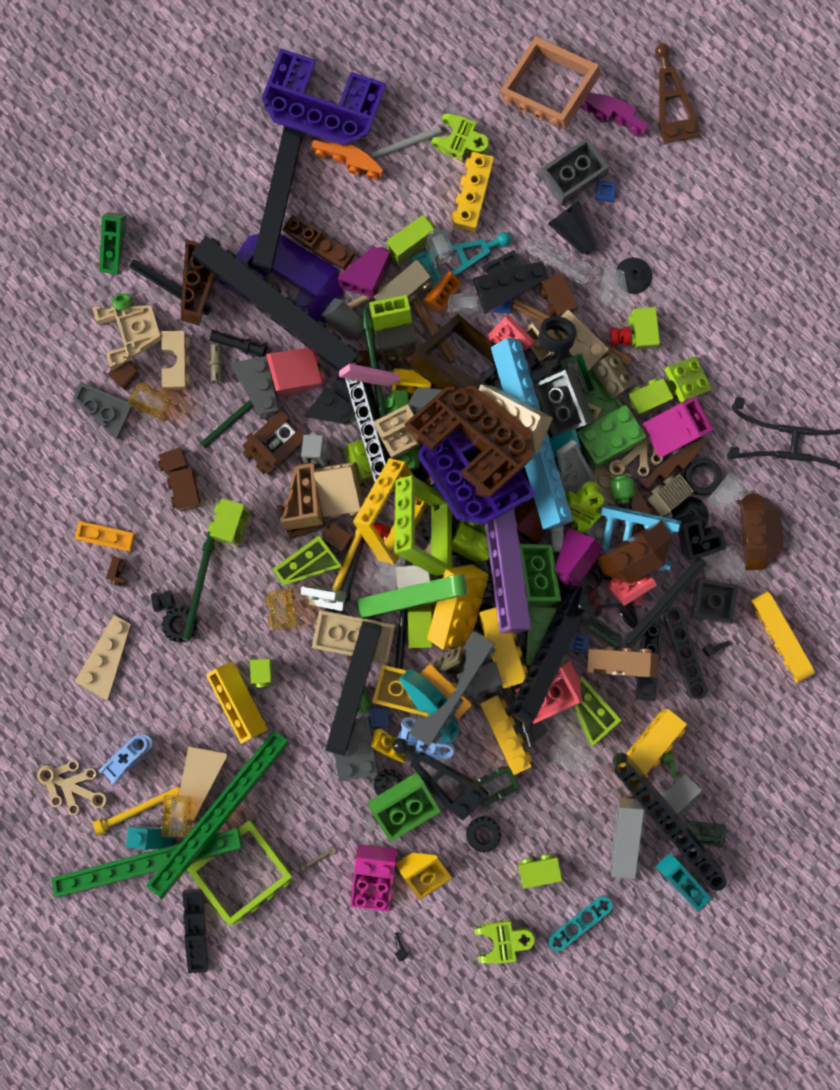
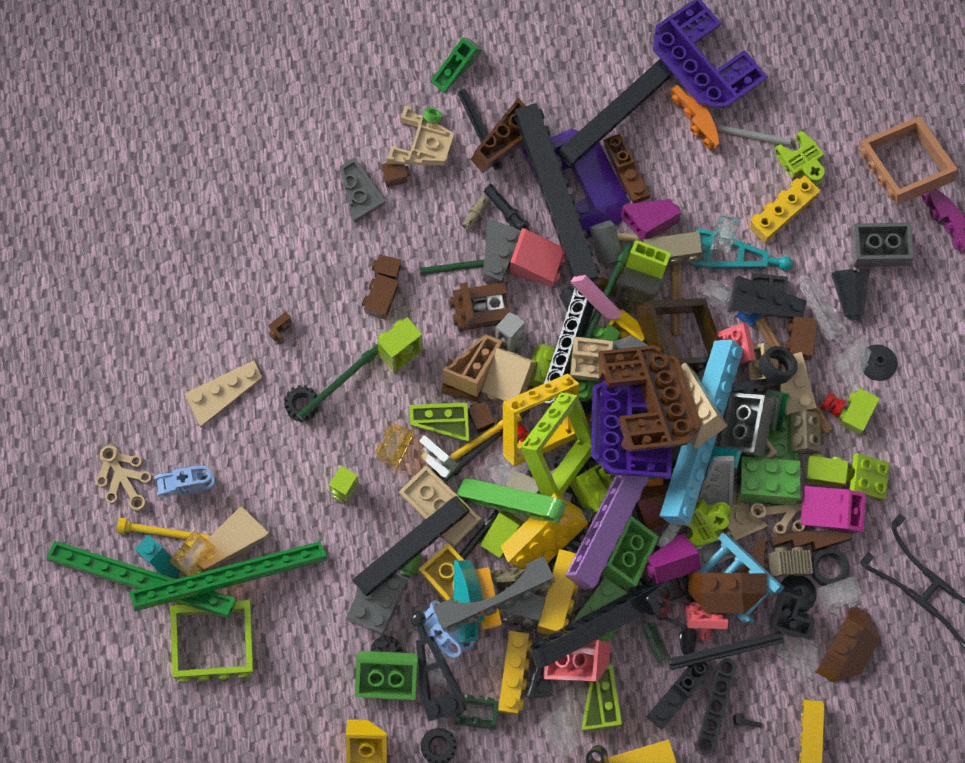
camera: 30 degrees right, 10 degrees down
(104, 536) = (290, 293): light orange tile -> none
(149, 401) = (400, 207): clear yellow window -> none
(162, 601) = (301, 374): black wheel -> none
(176, 377) = (436, 202): tan arch -> none
(195, 931) = (141, 664): black slope -> none
(236, 702) = (305, 496): yellow brick -> none
(303, 867) = (300, 674): dark tan hinge -> none
(330, 408) = (546, 308): black wing -> none
(373, 877) = (319, 720): dark pink slope -> none
(379, 717) = (416, 589): blue tile -> none
(383, 743) = (404, 608): yellow slope -> none
(409, 240) = (703, 213): lime brick -> none
(433, 296) = (693, 271): orange slope -> none
(579, 643) = (629, 638): blue tile -> none
(605, 191) = (899, 278): blue tile -> none
(622, 488) = (751, 530): bright green head -> none
(623, 662) = (655, 676): medium nougat wedge -> none
(714, 601) = (770, 678): black brick -> none

